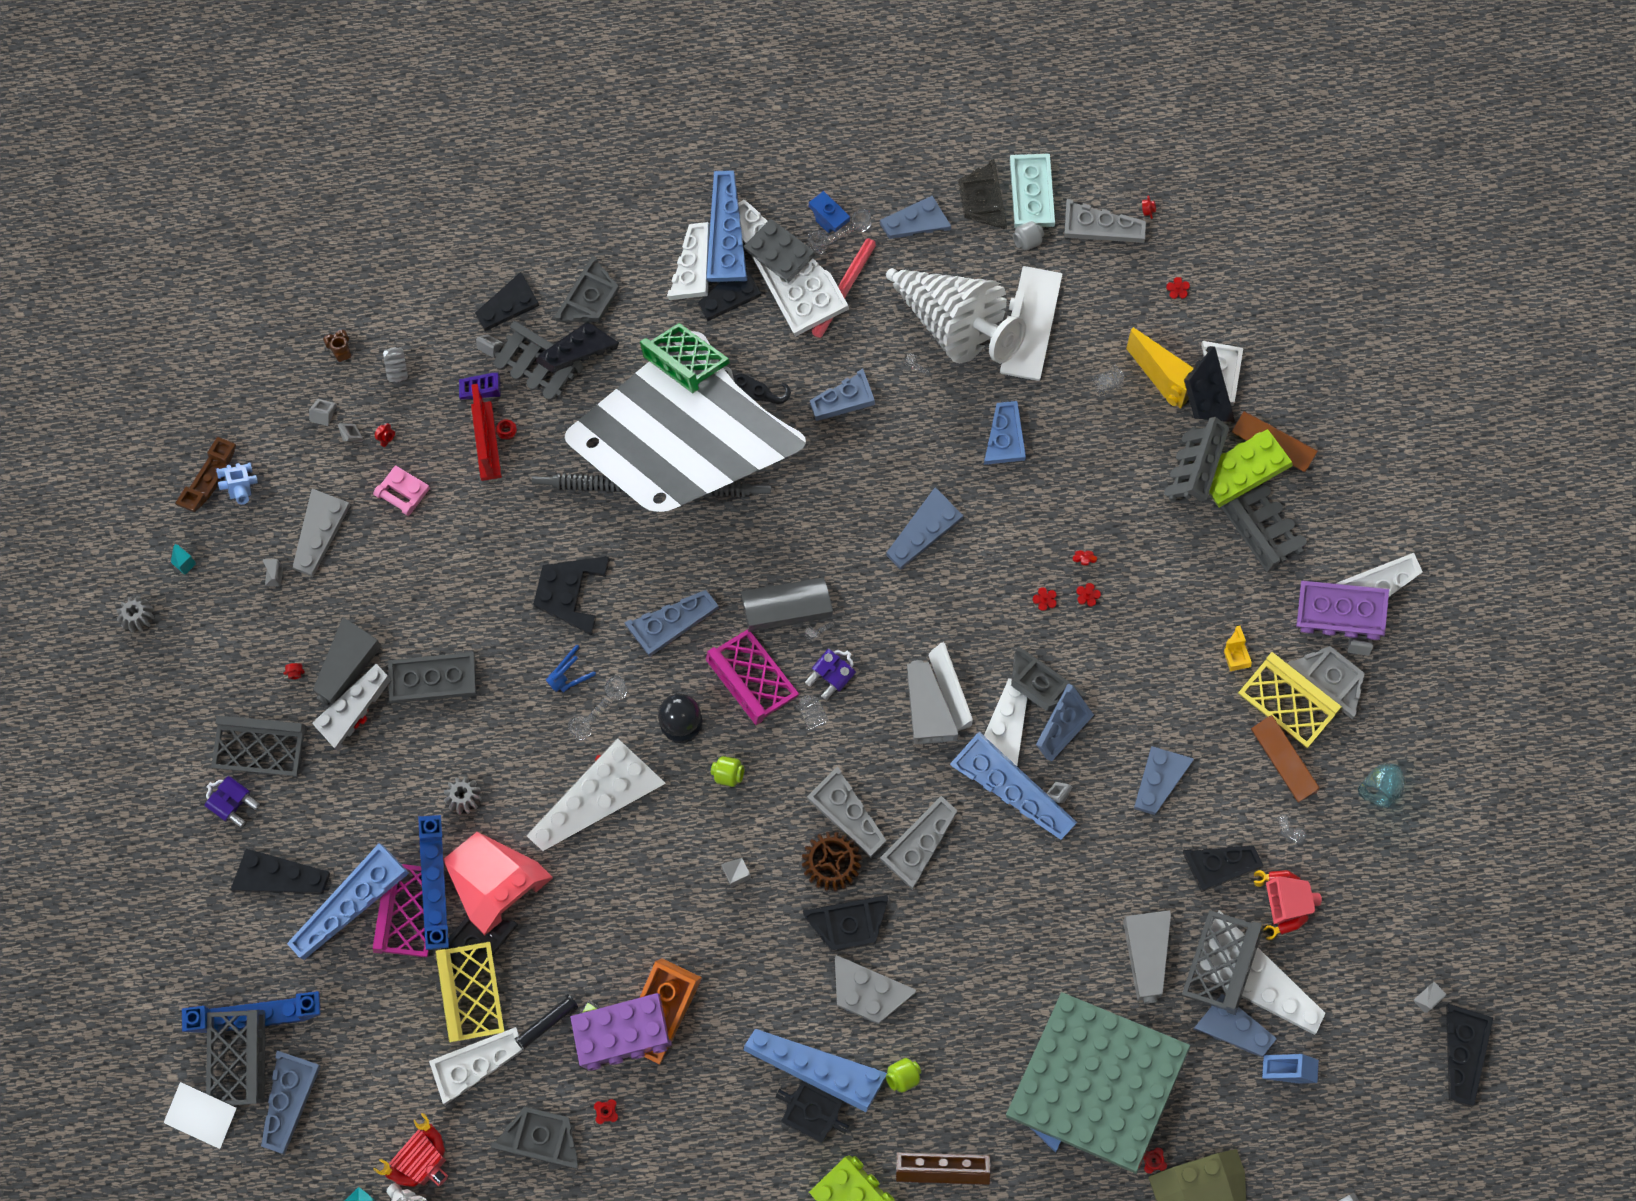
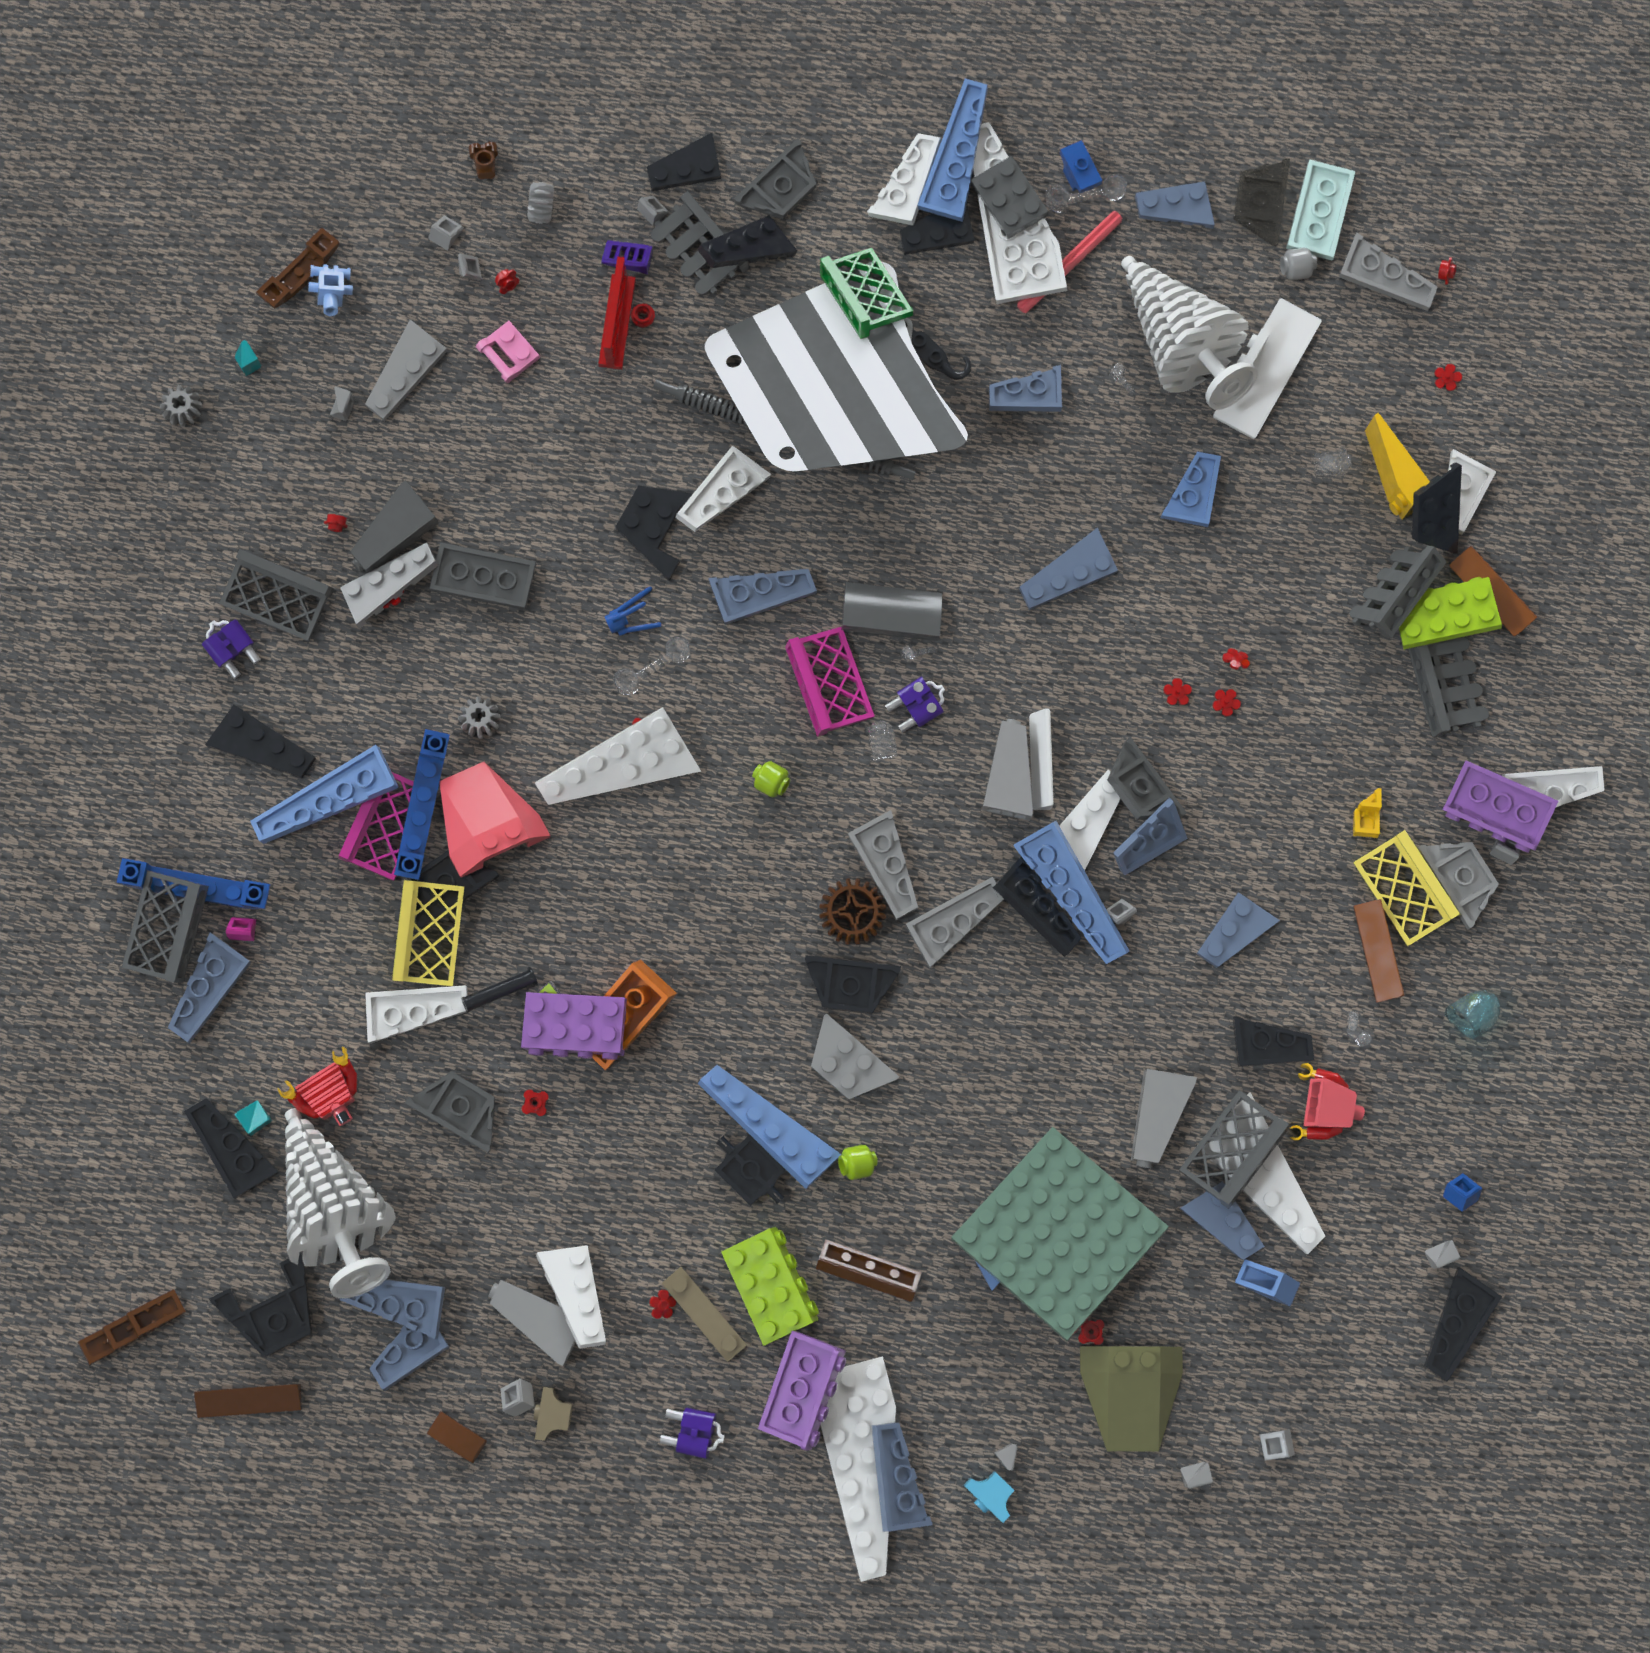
camera: 10 degrees right, 10 degrees up
(200, 1115) = (113, 975): white sticker -> none
(304, 1040) = (241, 929): none -> dark pink slope
(614, 545) = (723, 487): none -> white wing
(680, 718) = (737, 705): black tile -> none
(736, 872) = (747, 891): light grey slope -> none
(976, 804) = (1028, 898): none -> black wing
(1427, 939) = (1462, 1192): none -> blue slope

